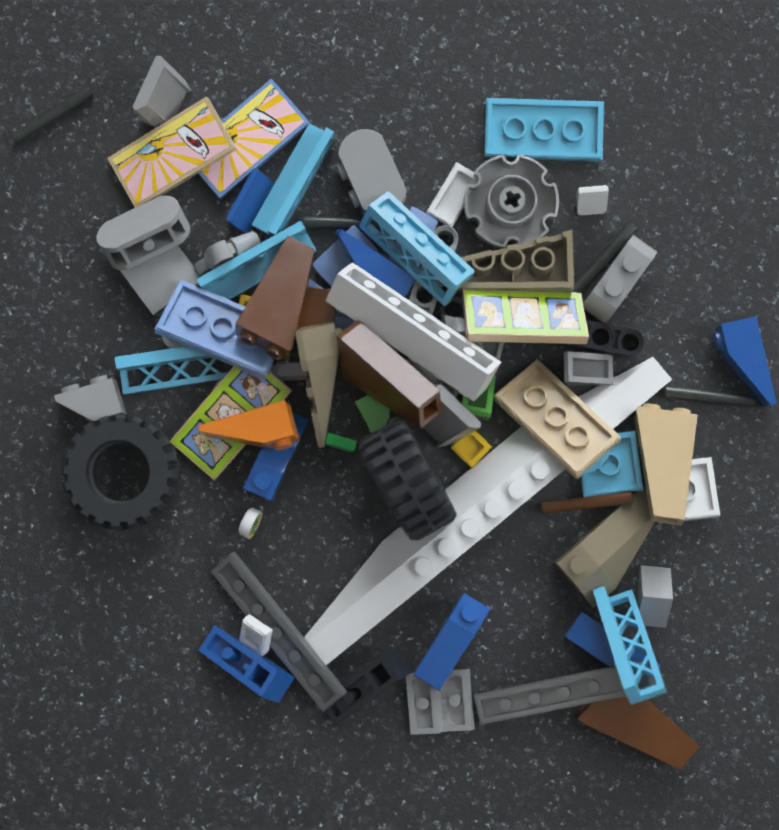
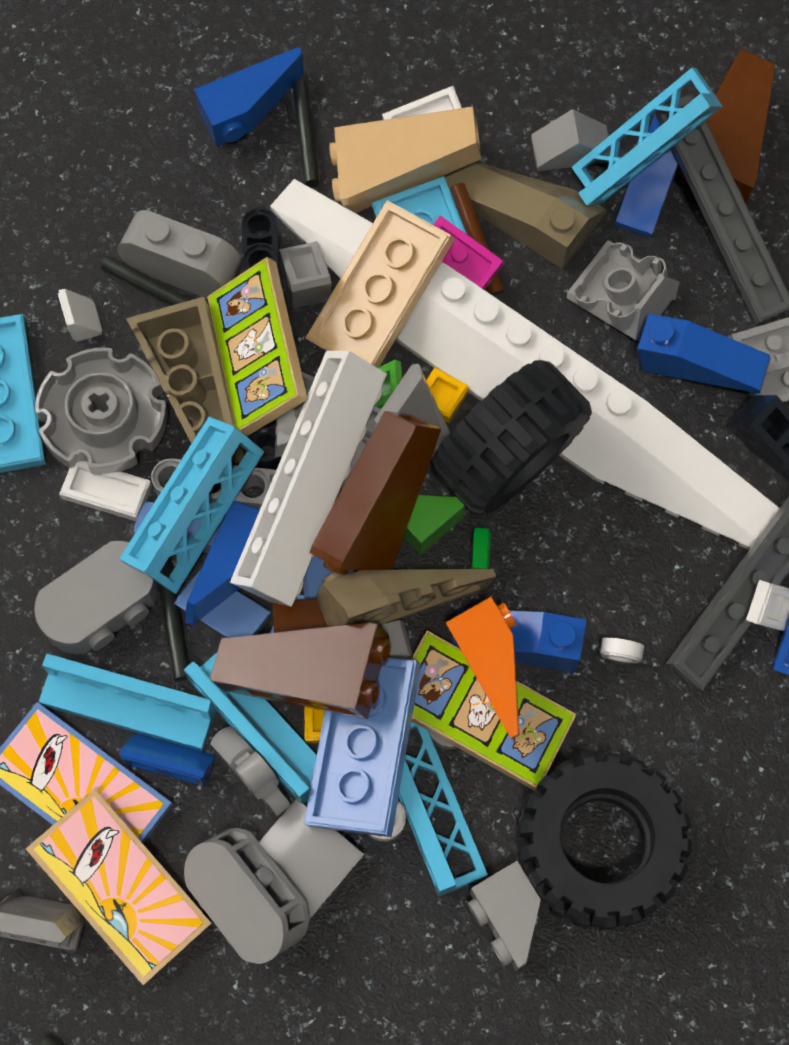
camera: 105 degrees left, 15 degrees down
(522, 601) = (624, 288): none -> light grey slope
(566, 490) = (469, 256): none -> dark pink plate

